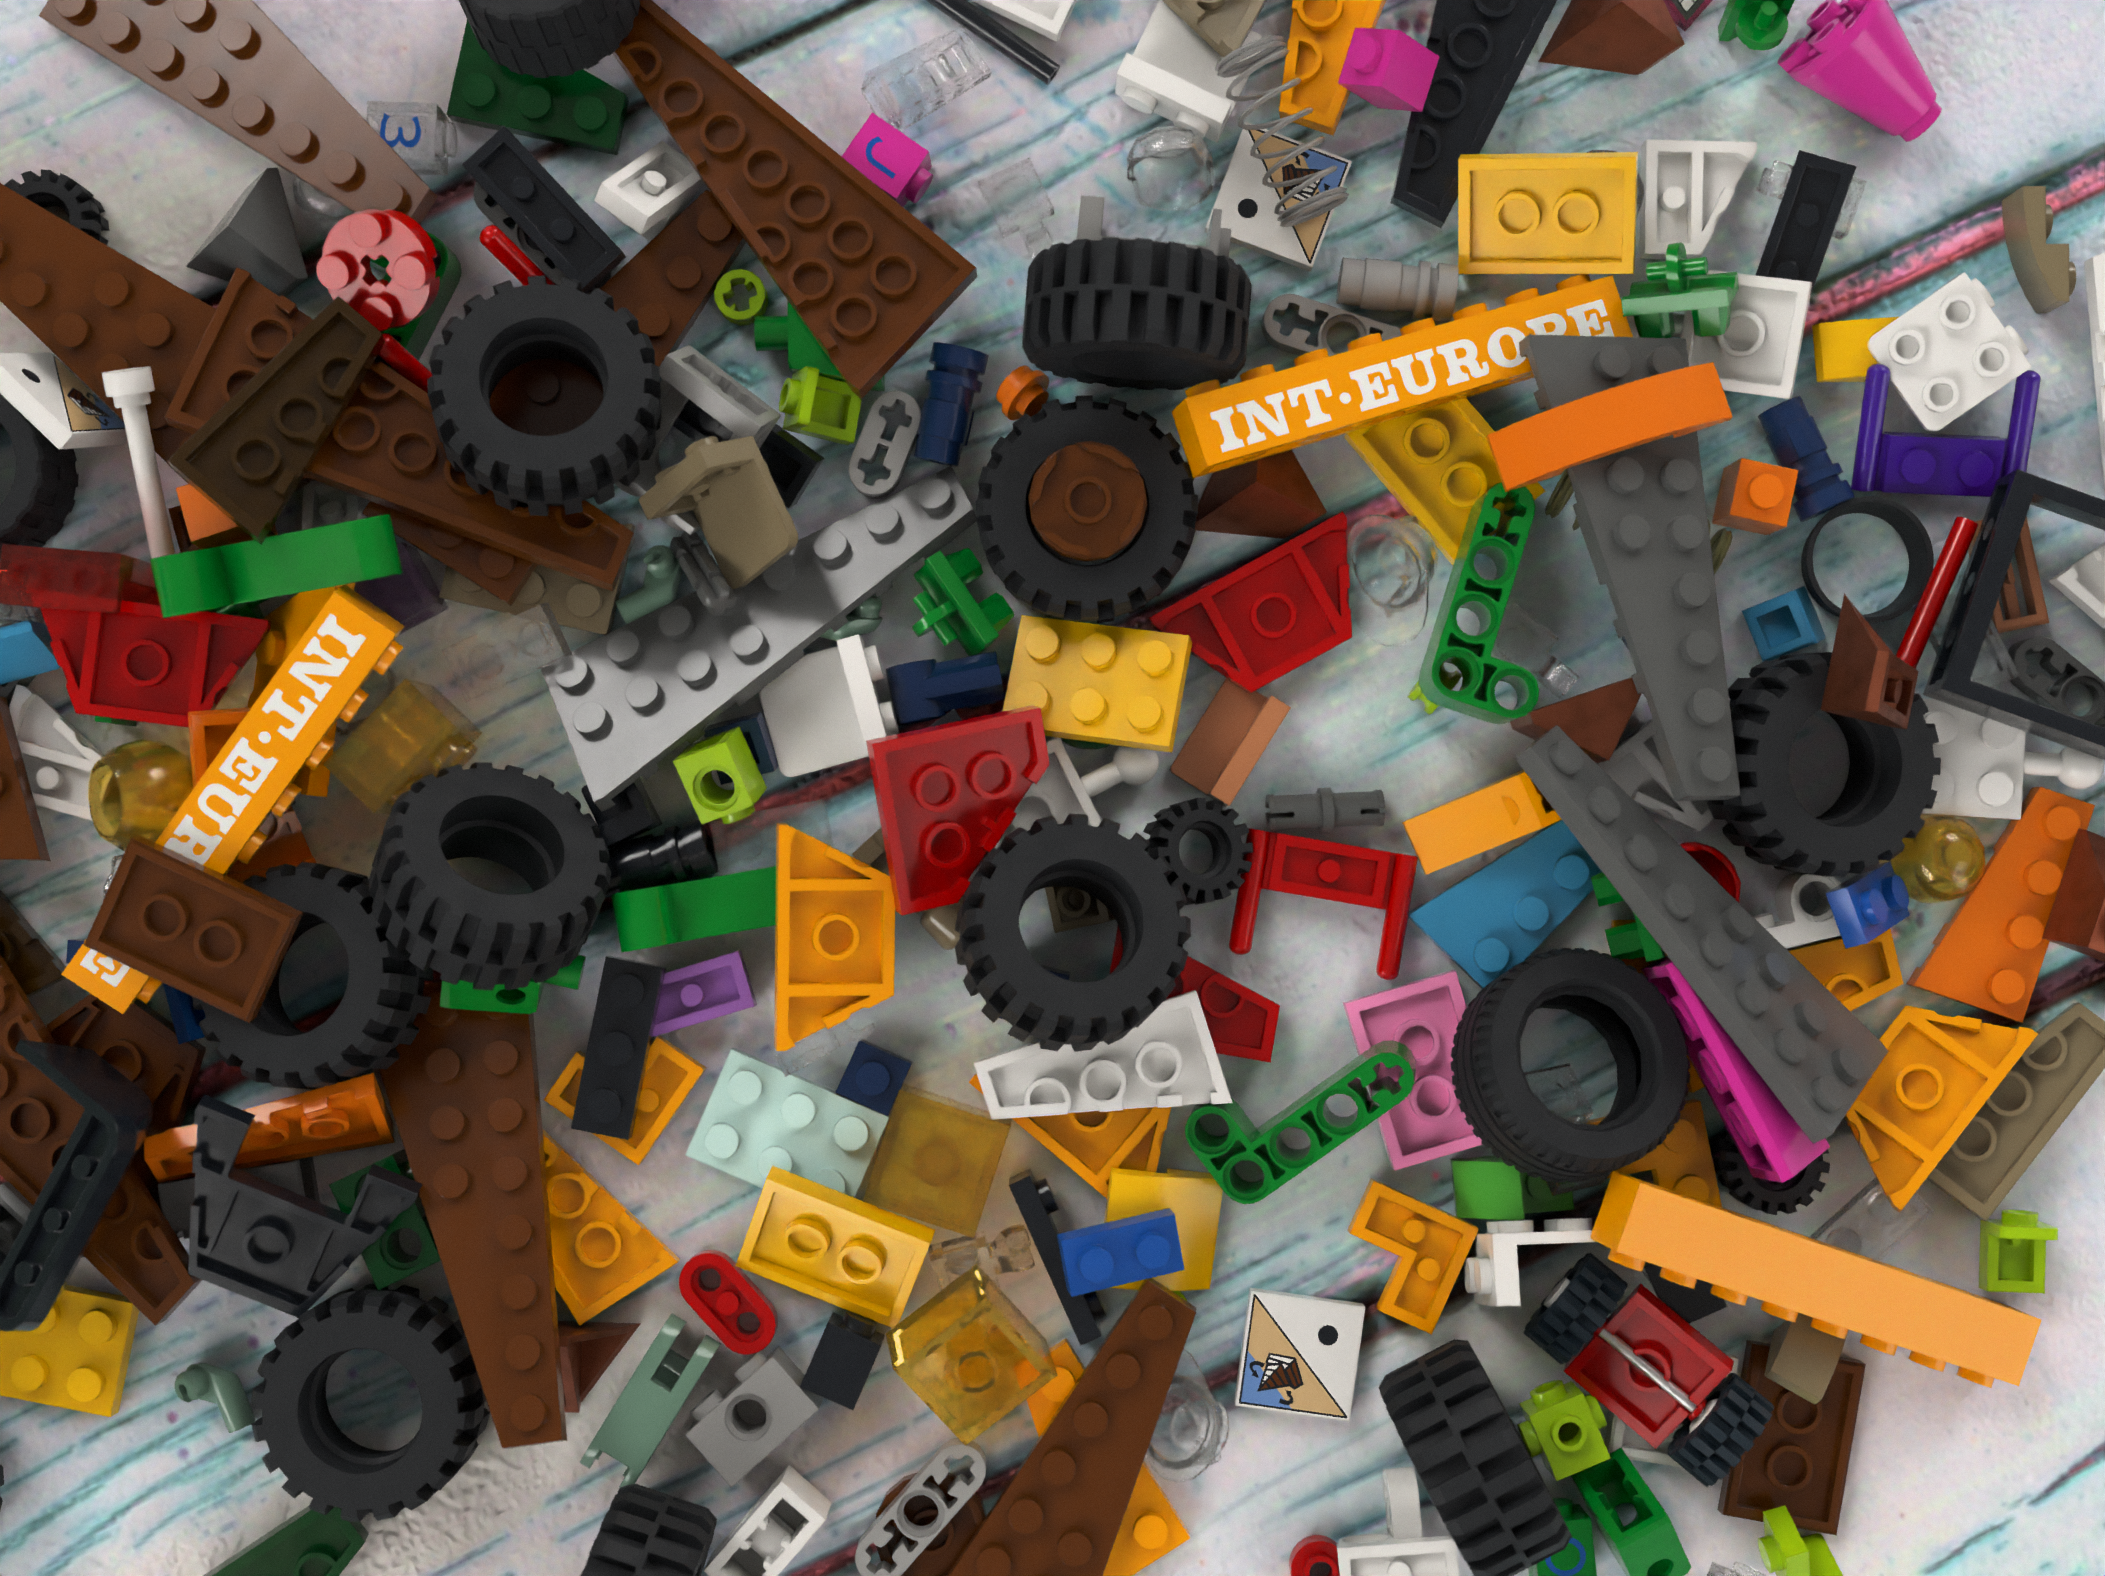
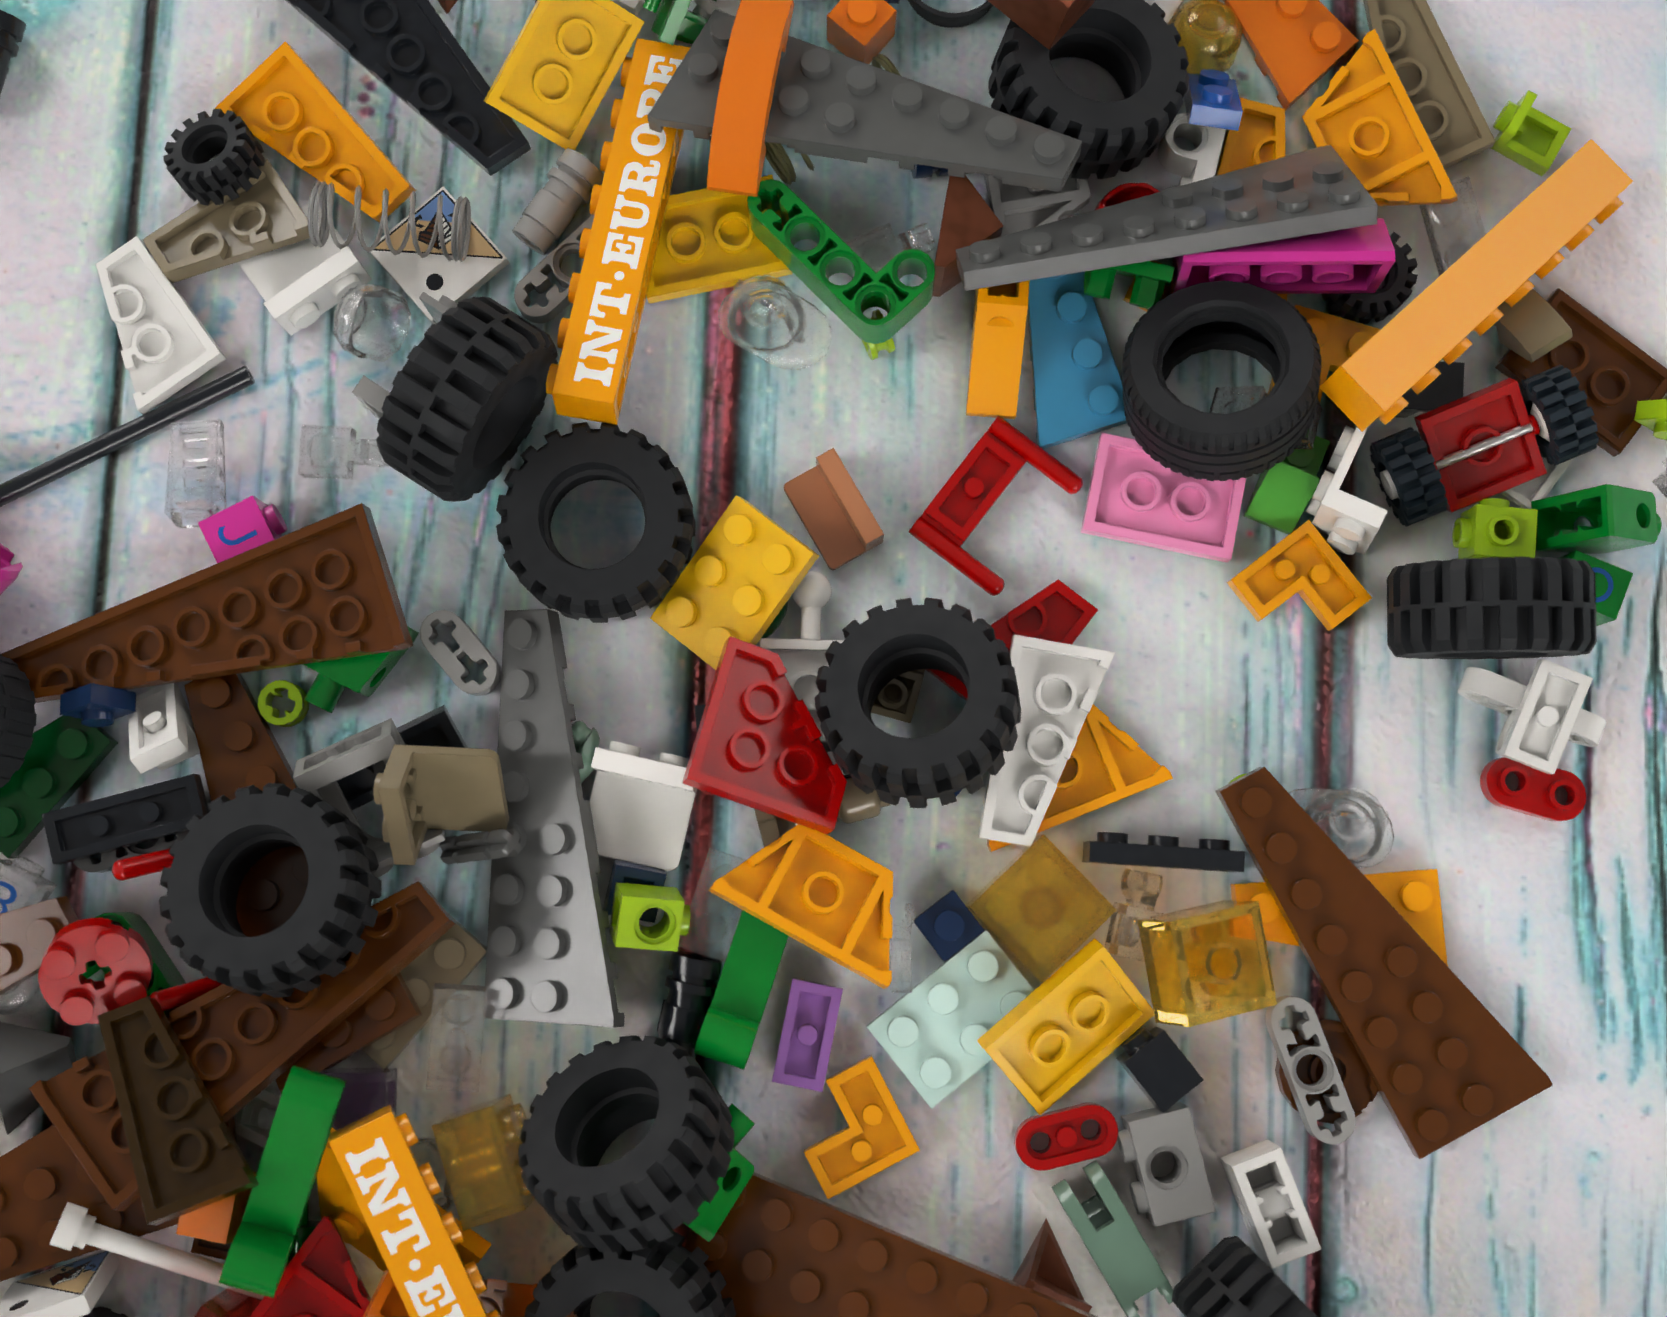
camera: 65 degrees left, 5 degrees down
(595, 1239) = (964, 1217): light orange wing -> none
(618, 1047) = (818, 1115): black plate -> none
(629, 816) = (641, 1013): black panel -> none
(640, 117) = (97, 704): none -> dark blue plate
(658, 587) = (471, 889): sand green arm -> none
(819, 407) = (402, 686): lime bracket -> none
(931, 689) = (669, 718): dark blue piece -> none
(947, 409) = (454, 585): dark blue axle -> none
(950, 606) = (617, 666): green hips -> none
(1023, 392) = (479, 525): orange plate -> none
(1087, 501) = (590, 512): reddish brown tile -> none
(1120, 1252) = (1186, 801): blue plate -> none
(1196, 1205) = (1183, 763): yellow slope -> none
(1225, 843) = (909, 555): black tyre -> none
(1259, 499) = (661, 388): copper slope -> none
(1270, 610) = (750, 426): red wing -> none
(1299, 1354) = (1335, 709): tile -> none
(1307, 1113) = (1151, 601): green beam -> none
(1325, 810) = (925, 467): dark grey pin -> none
(1388, 69) = (389, 119): dark pink brick -> none
(1784, 624) = (968, 57): dark azure slope -> none

